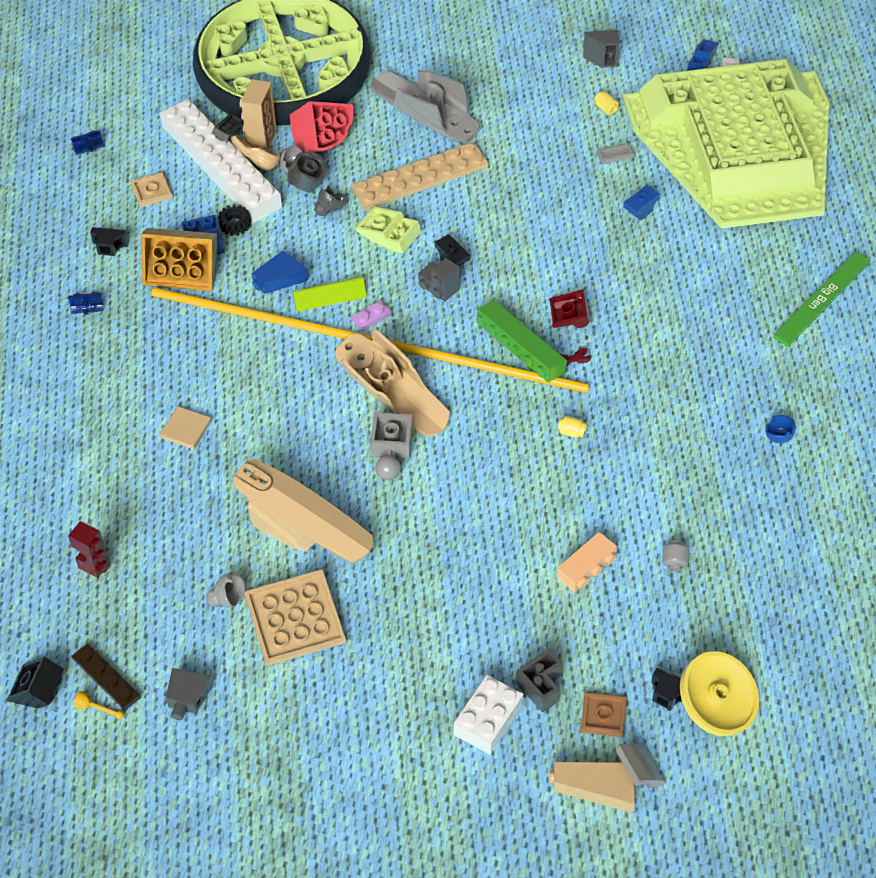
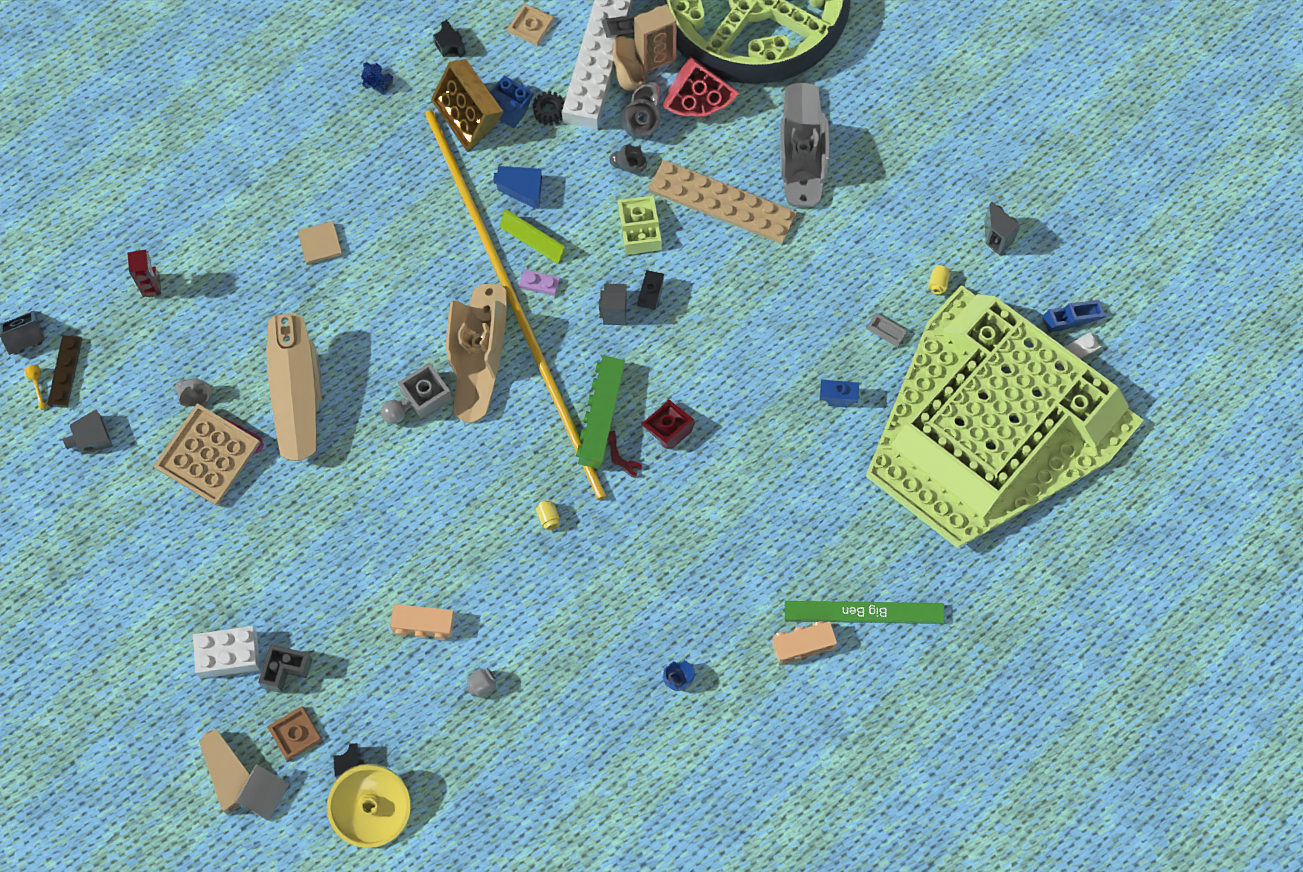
camera: 50 degrees right, 15 degrees up
(817, 343) = (804, 642): none -> light nougat brick

